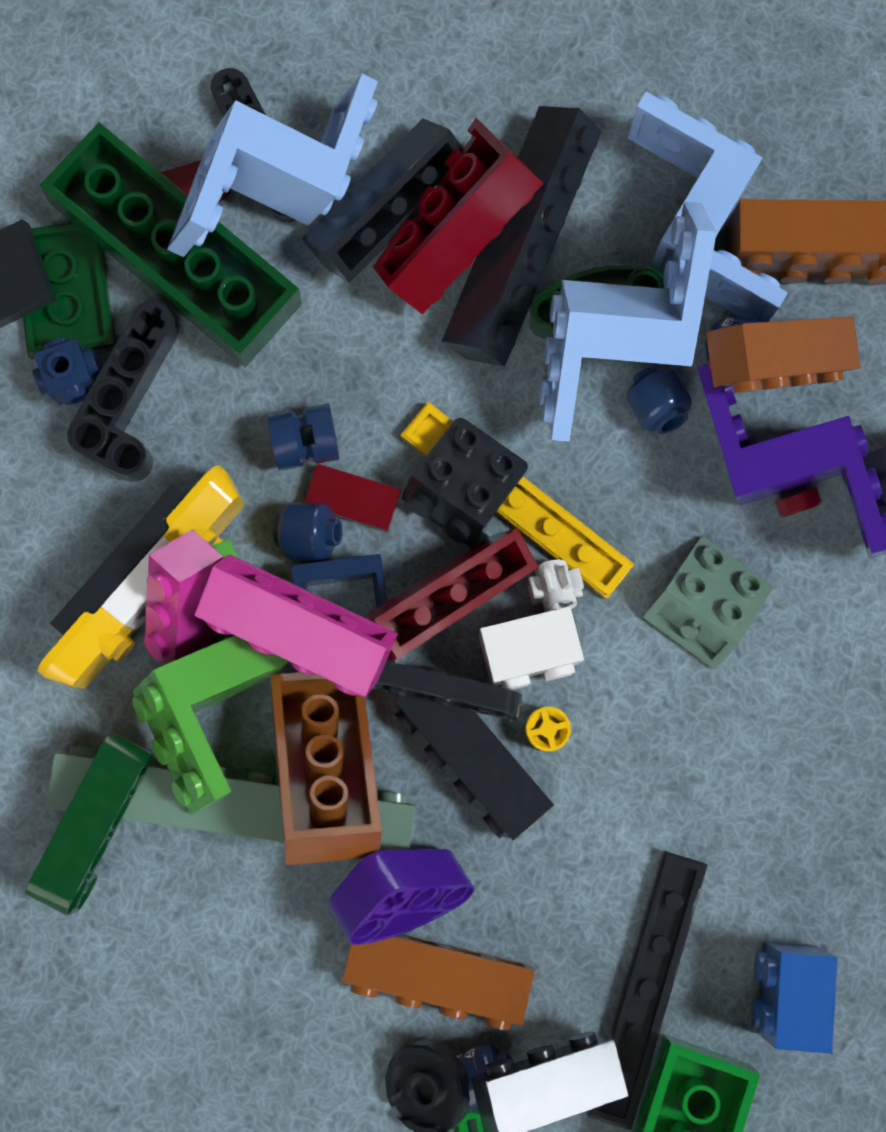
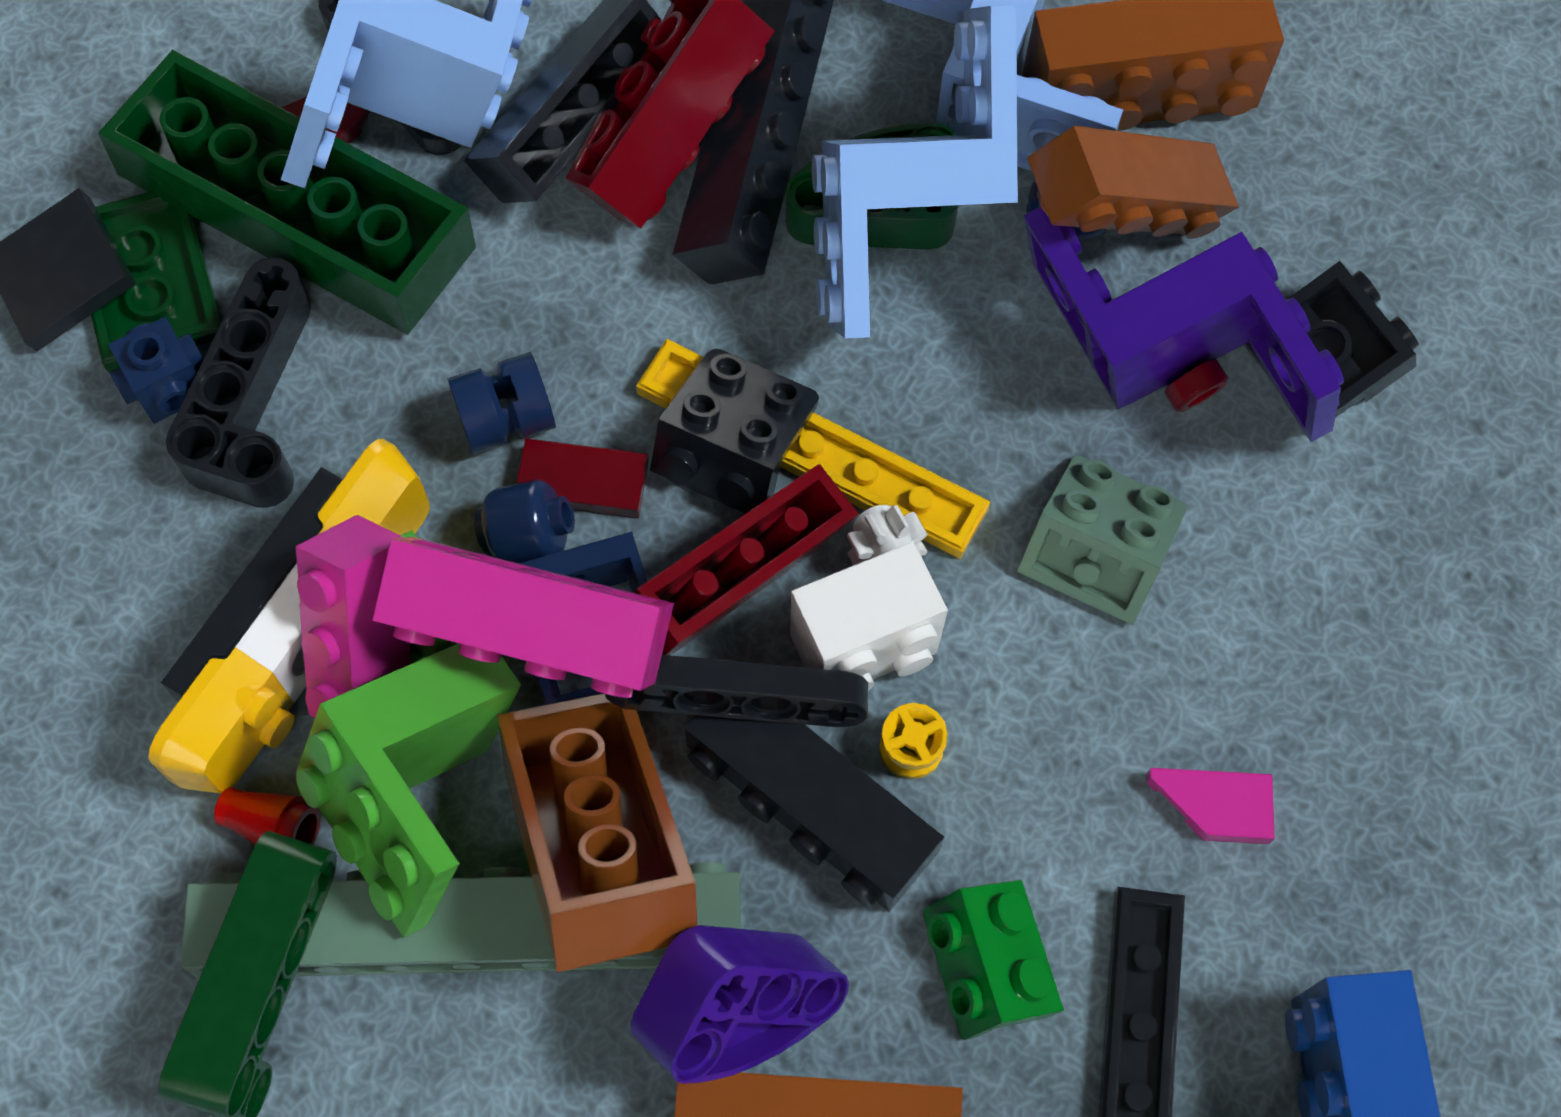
camera: 10 degrees left, 15 degrees down
(109, 711) = (257, 812): none -> red cone
(572, 884) = (991, 958): none -> green bracket
(659, 400) = (980, 287): dark blue head -> none
(746, 805) = (1220, 803): none -> dark pink tile

